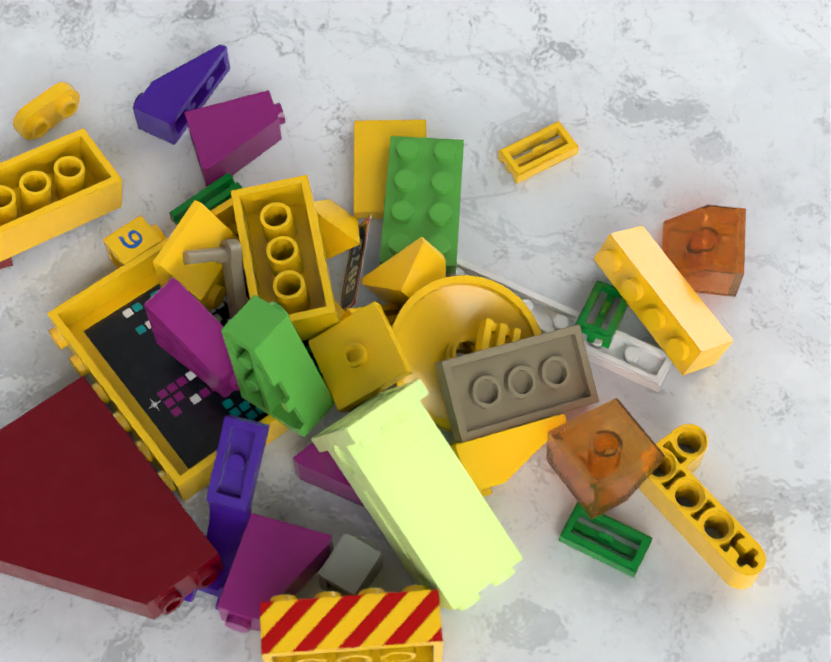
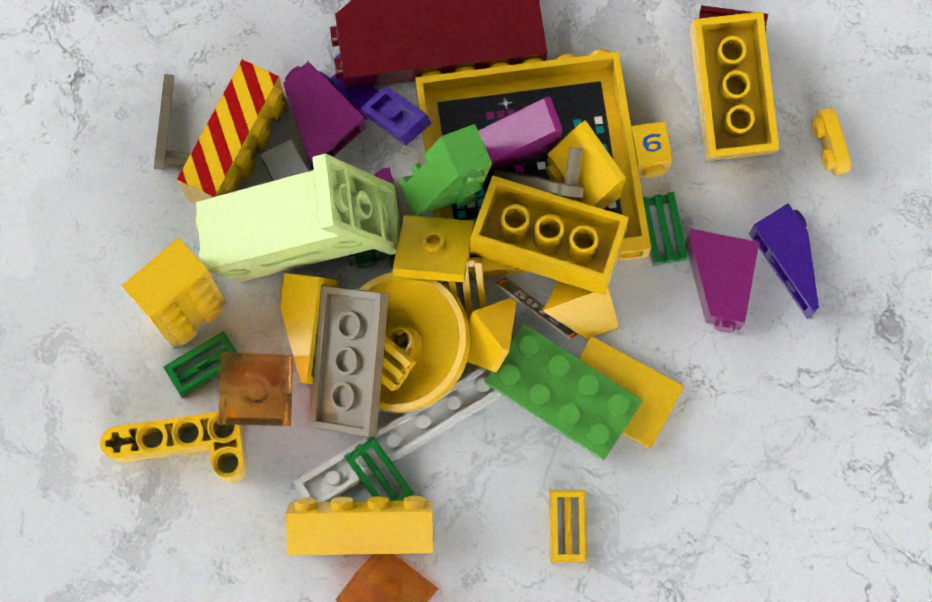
camera: 120 degrees right, 15 degrees up
(568, 560) = (176, 293): none -> yellow brick

